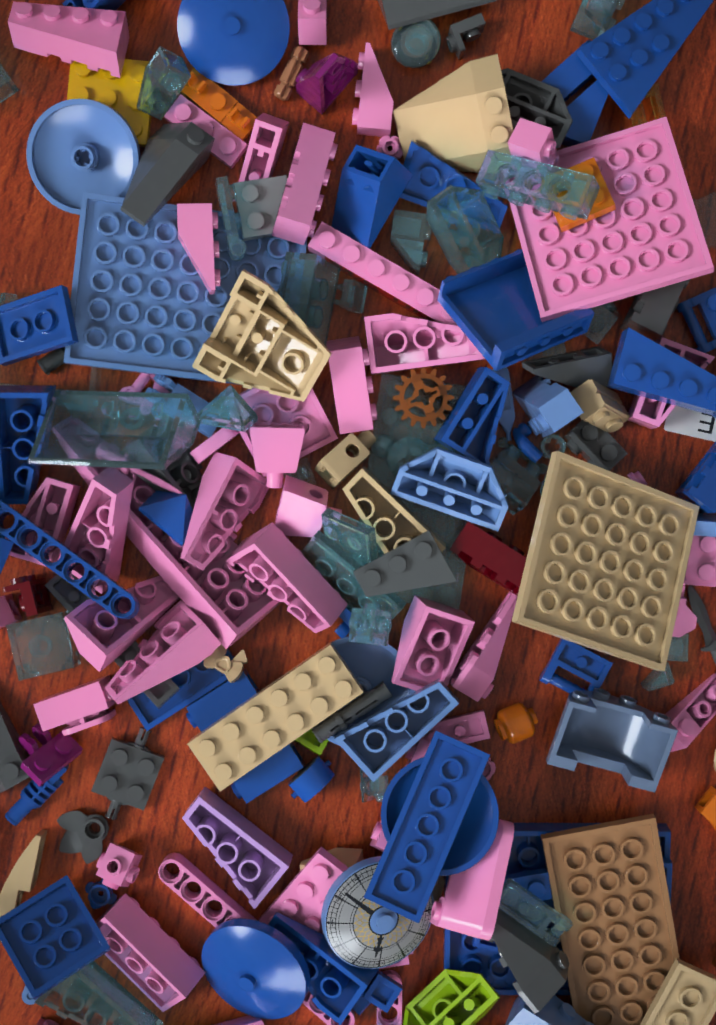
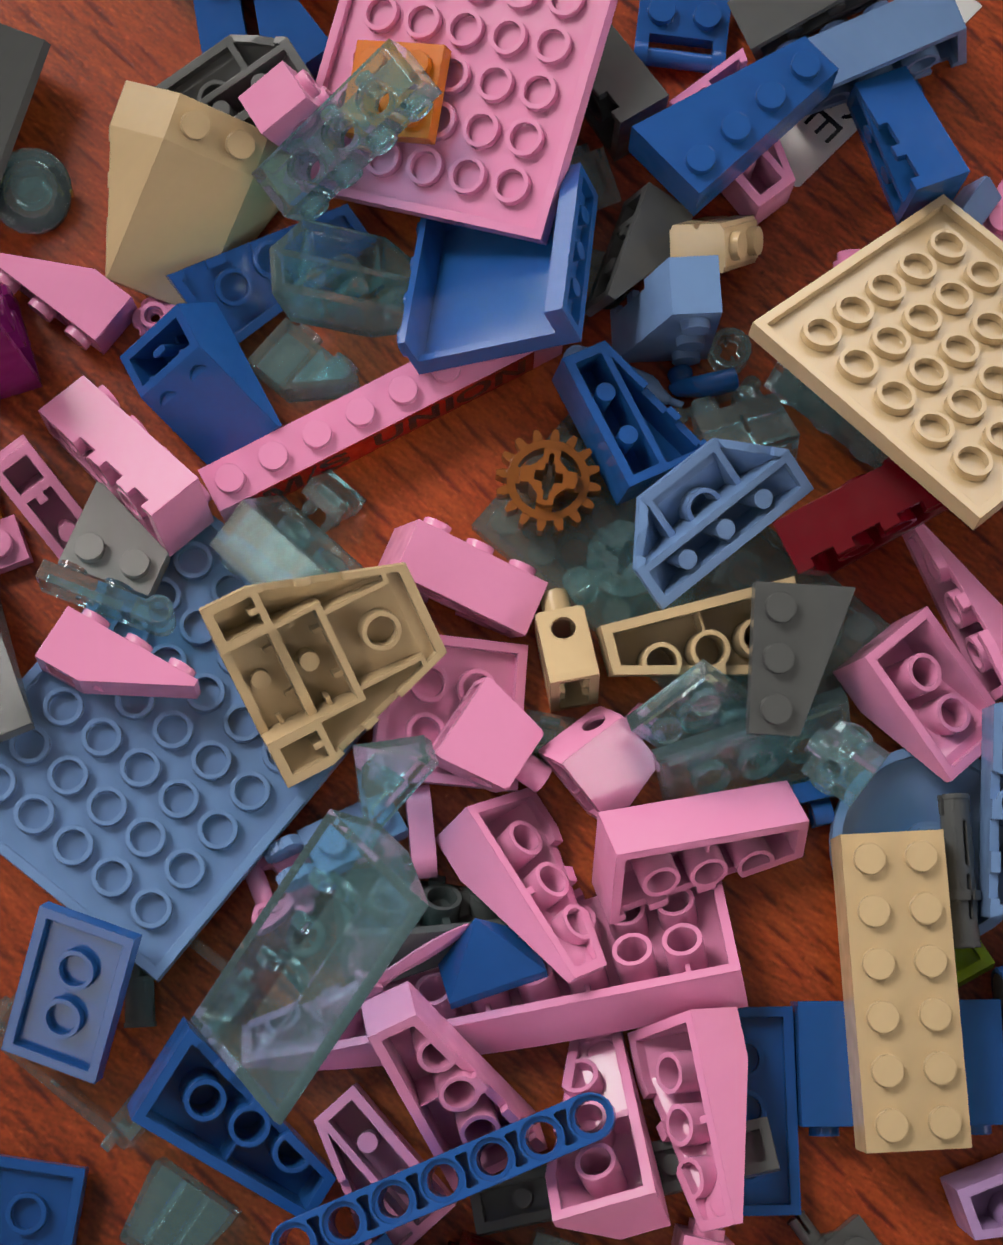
camera: 60 degrees left, 10 degrees down
(223, 664) = (783, 1018): tan piece -> none
(413, 343) = (456, 450): bright pink wedge -> none
(467, 30) = (63, 118): dark grey bracket -> none
(594, 445) = (760, 287): dark grey bracket -> none

